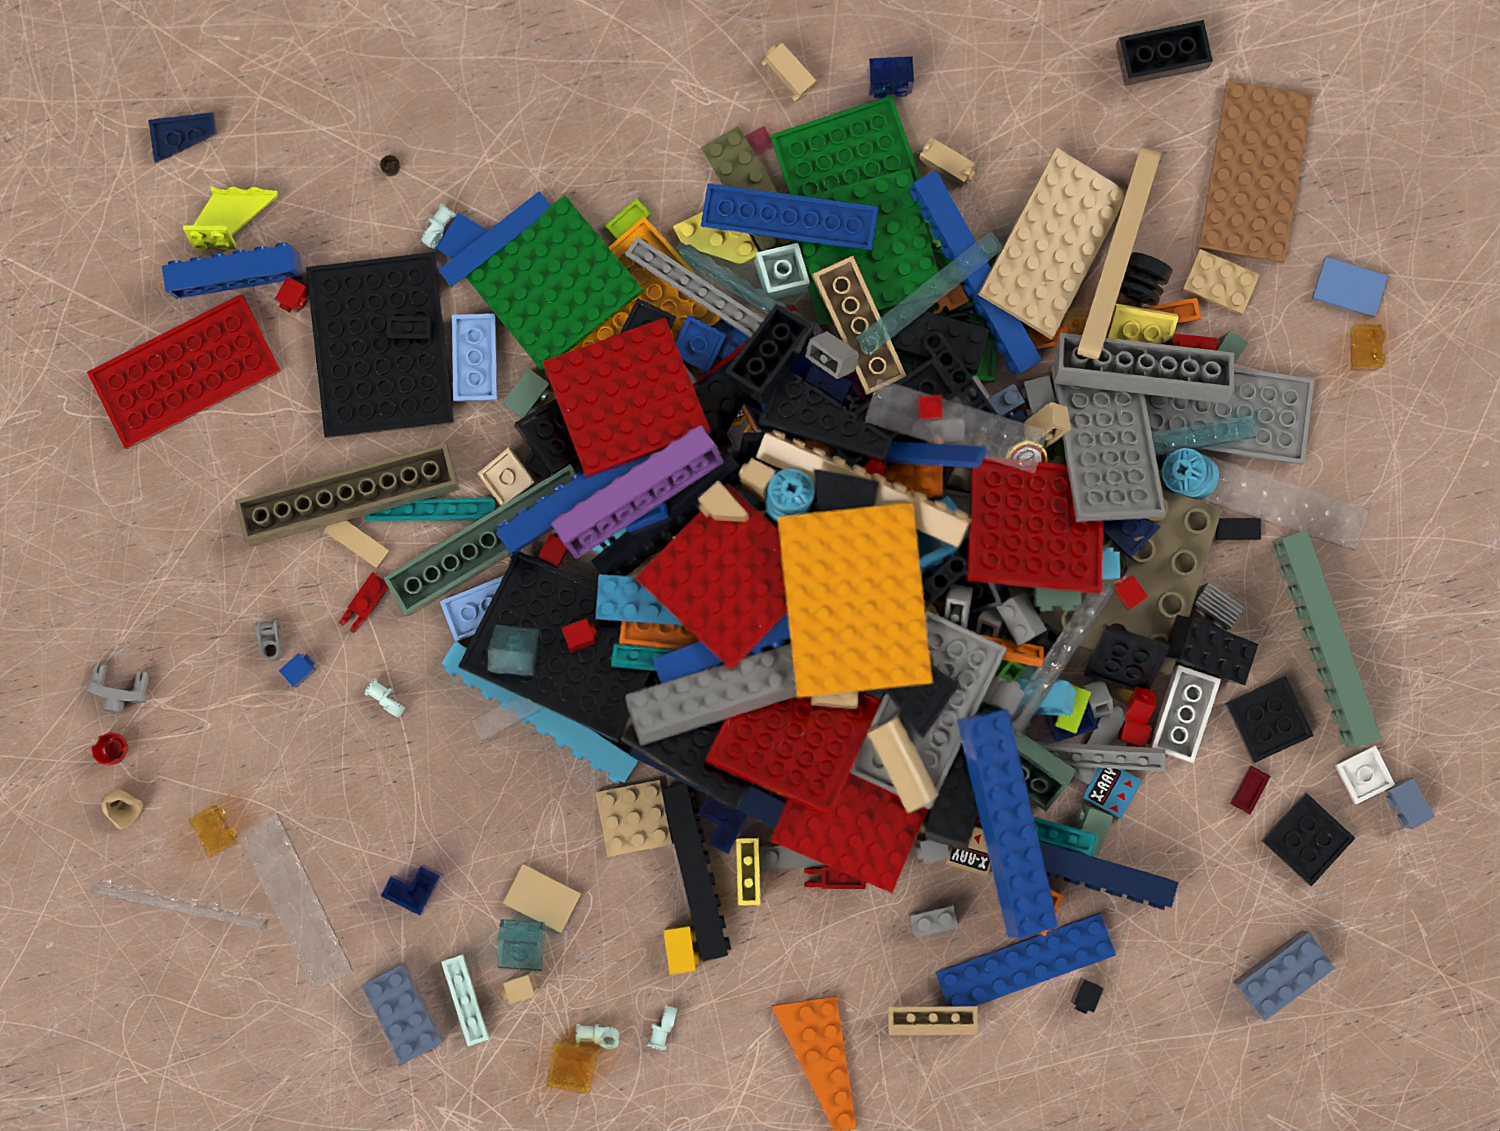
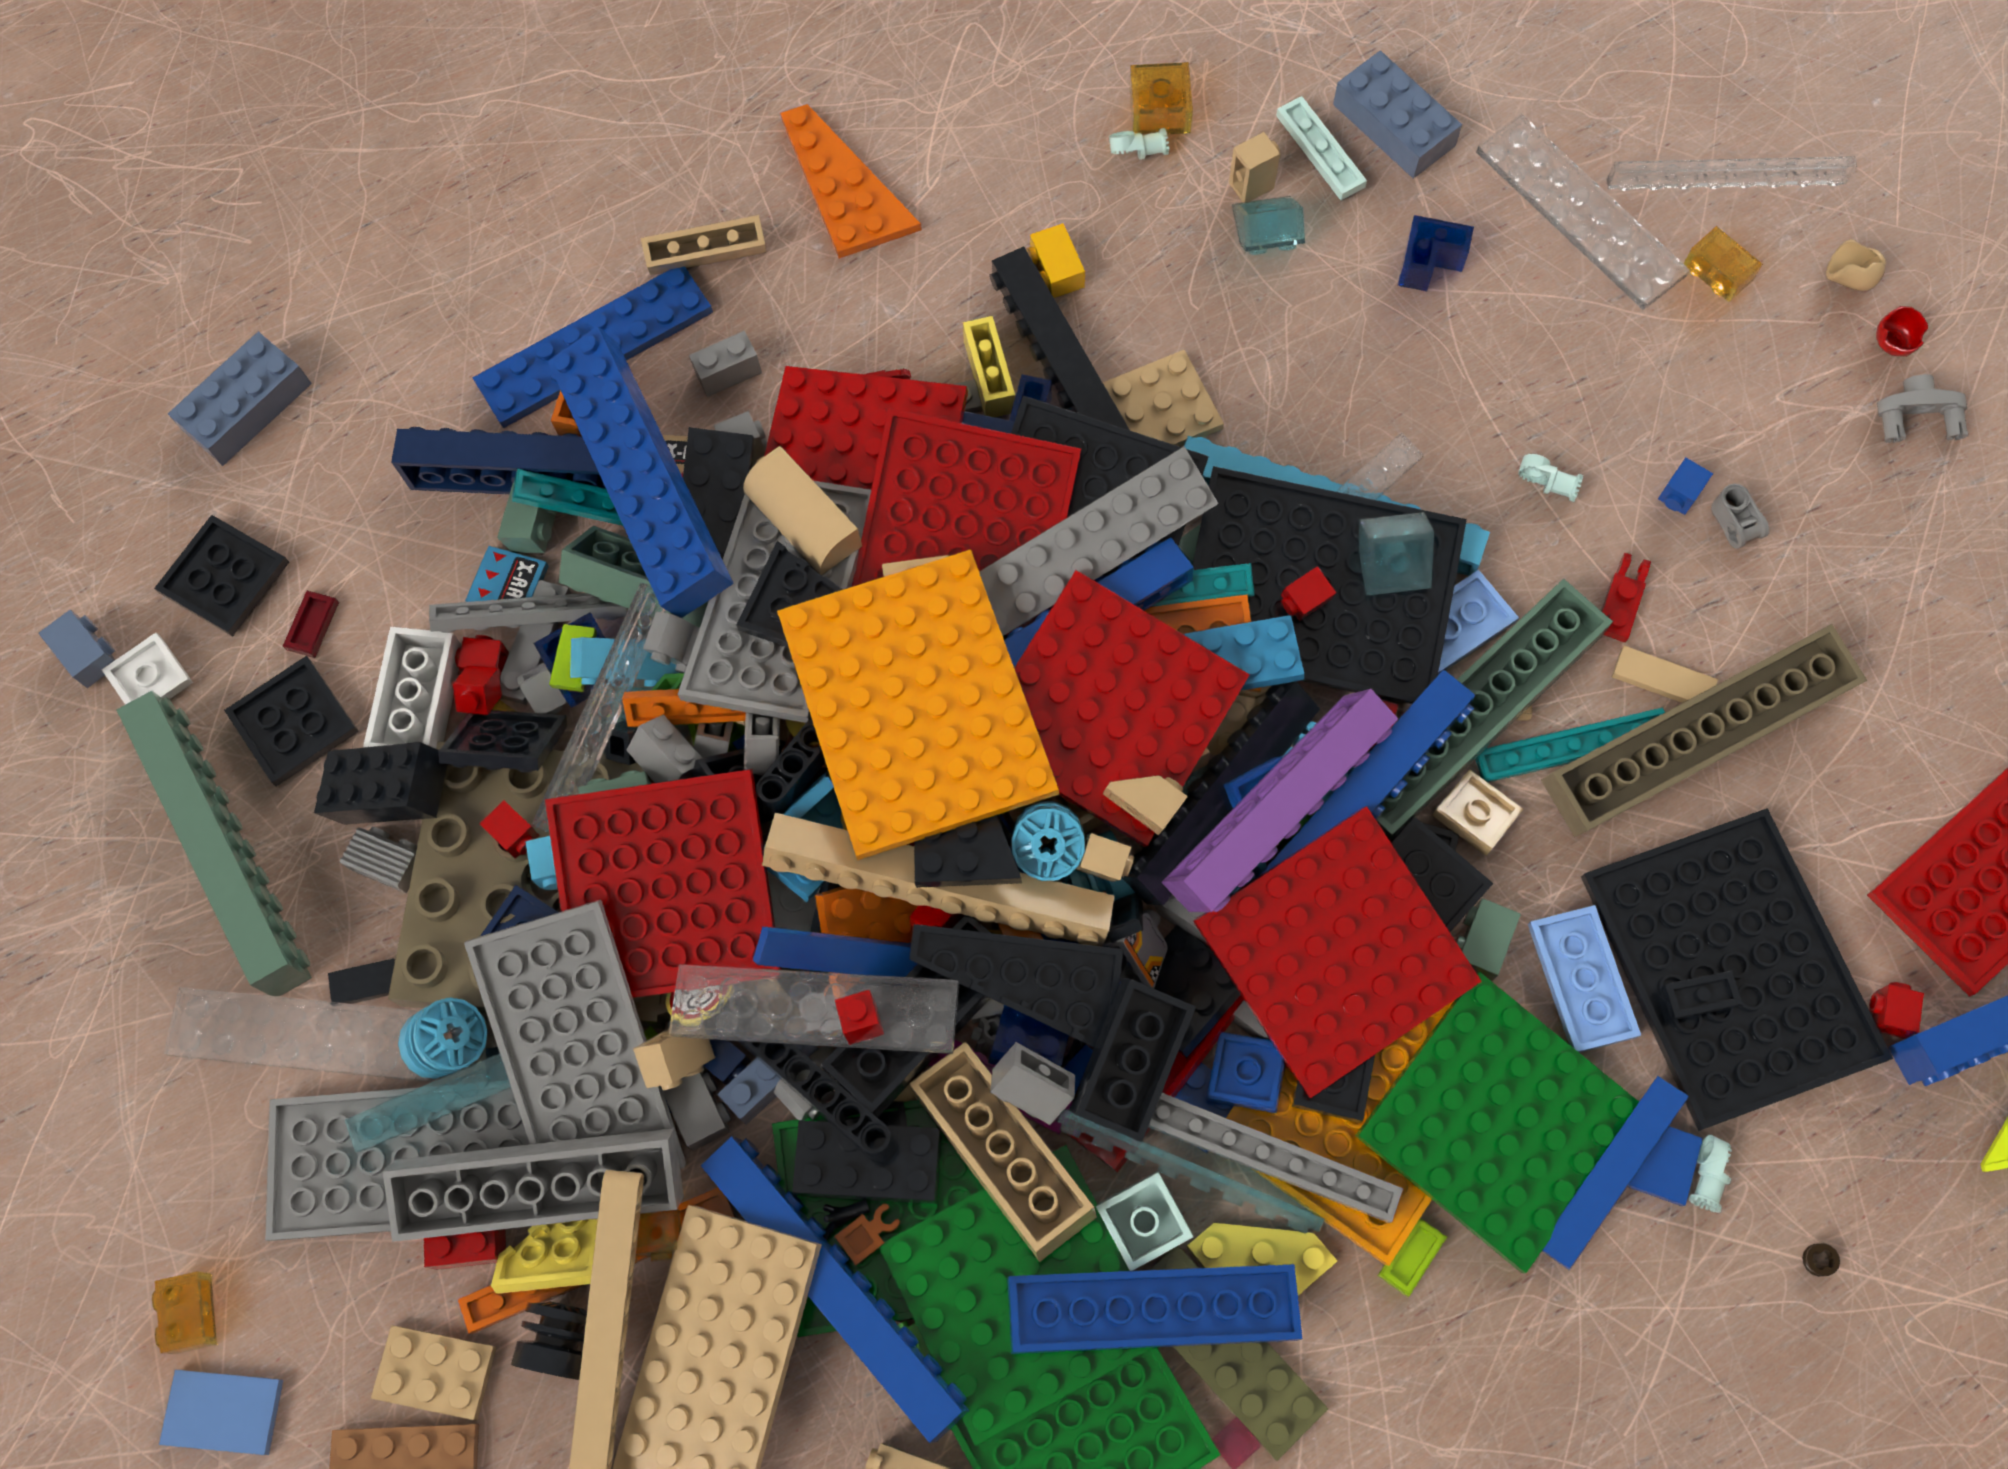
camera: 170 degrees right, 15 degrees down
(542, 898) = (1257, 285): tan tile -> none
(660, 1031) = (1058, 166): light aqua connector -> none
(929, 292) = (896, 1227): clear light blue plate -> none
(1086, 996) = (504, 321): black brick -> none
(1233, 344) = (403, 1262): sand green brick -> none

